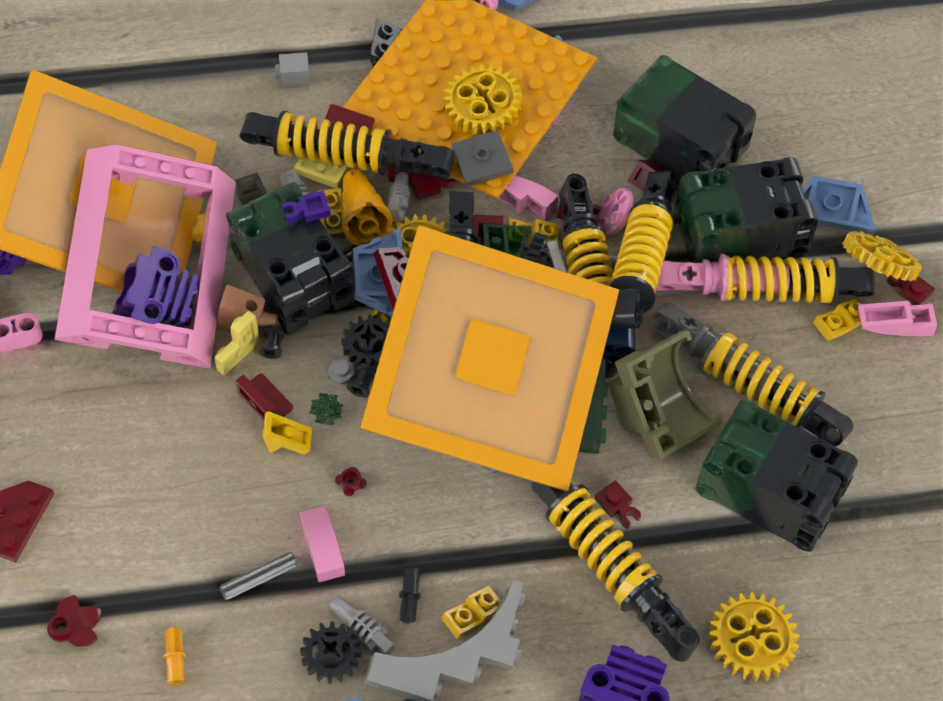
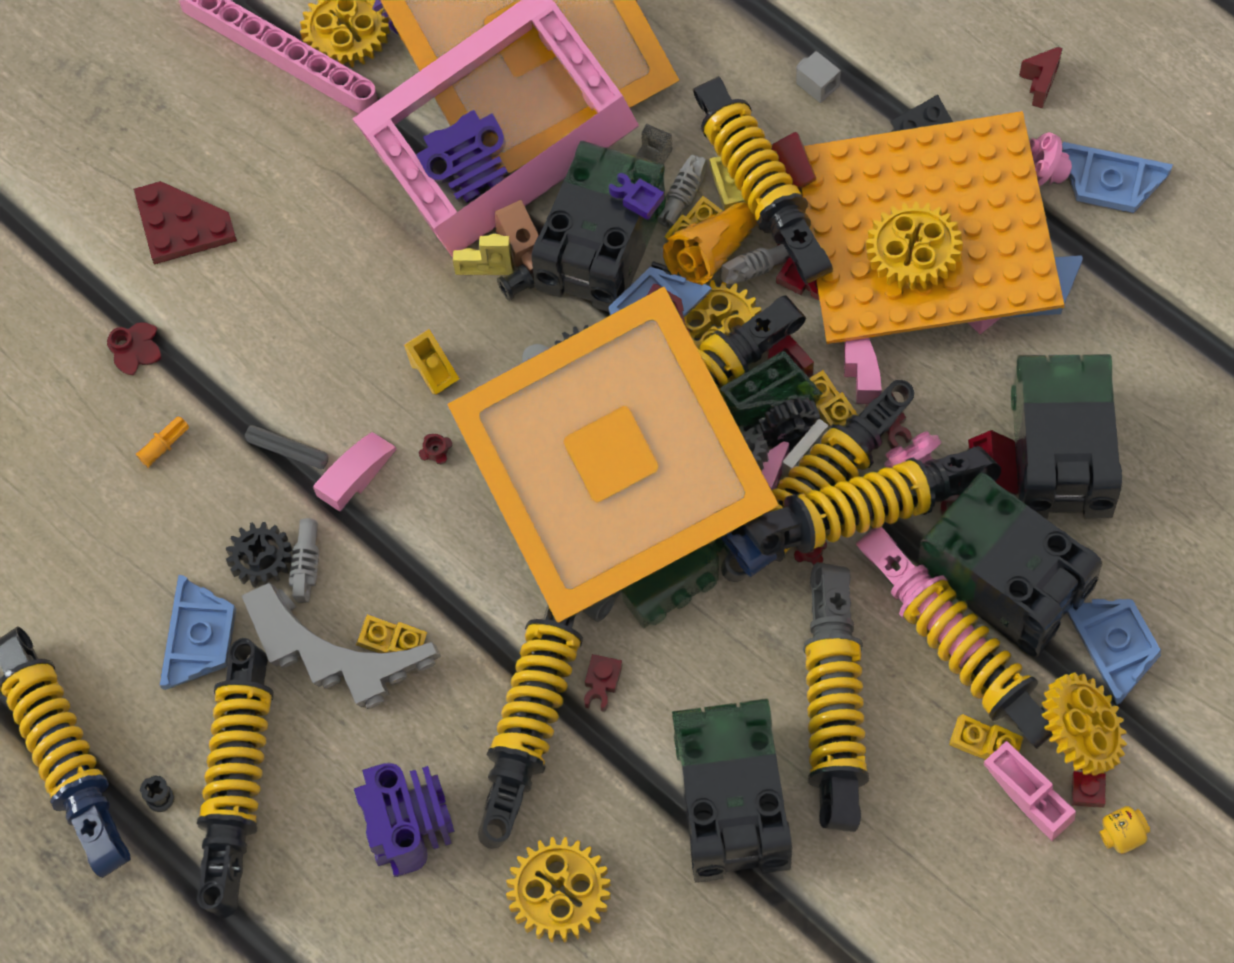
camera: 60 degrees right, 5 degrees up
(263, 396) = (457, 320): dark red panel -> none
(326, 408) = (485, 365): clear green gear -> none
(409, 595) = (364, 576): black axle -> none
(482, 158) = (851, 295): dark grey plate -> none
(657, 400) = (743, 628): olive piece -> none

